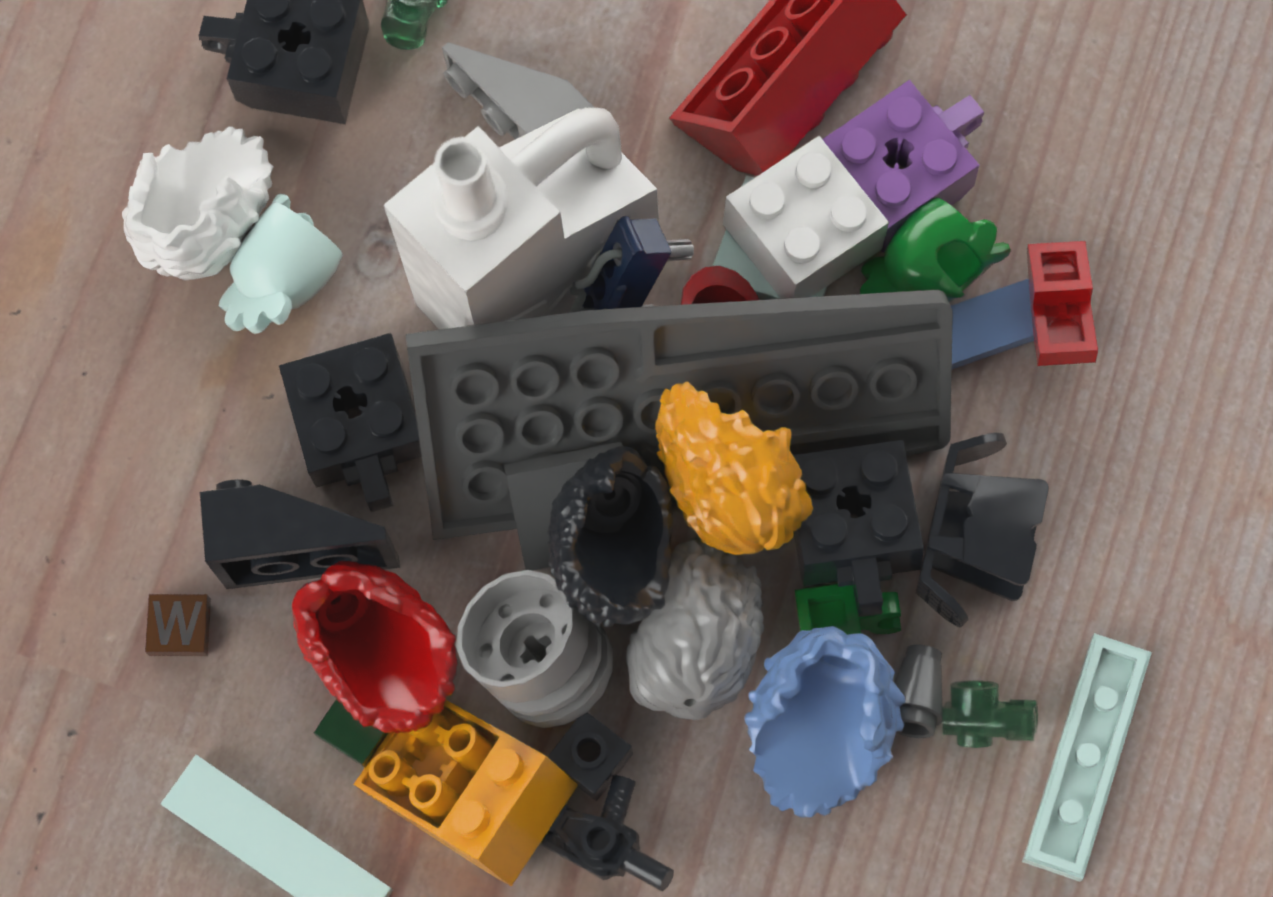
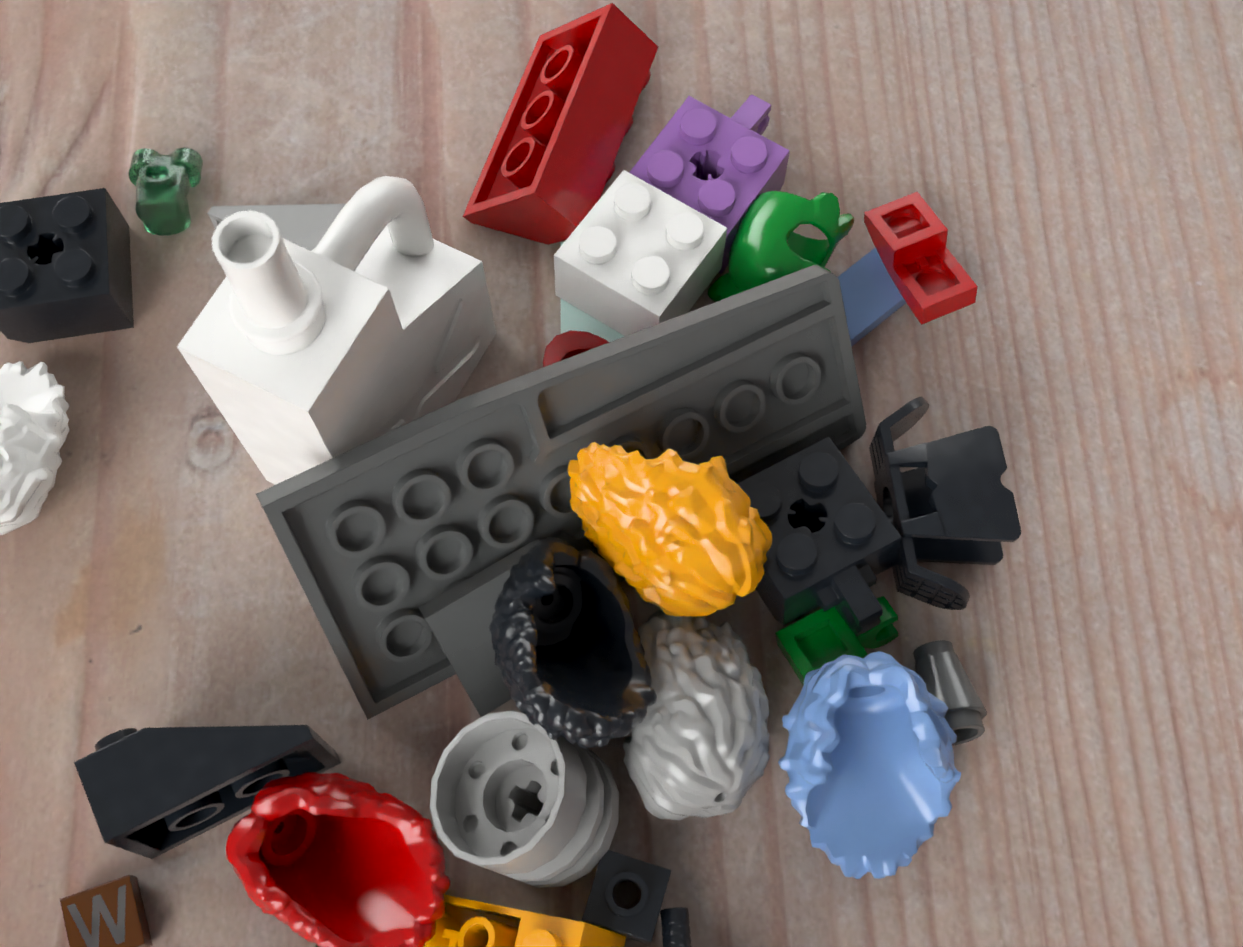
camera: 25 degrees left, 5 degrees down
(277, 268) = (100, 488): light aqua piece -> none
(358, 448) = (258, 645): black hinge -> none
(628, 266) = (479, 347): dark blue piece -> none
(979, 716) = (1020, 695): clear green plate -> none
(1087, 757) = (1143, 702): light aqua tile -> none

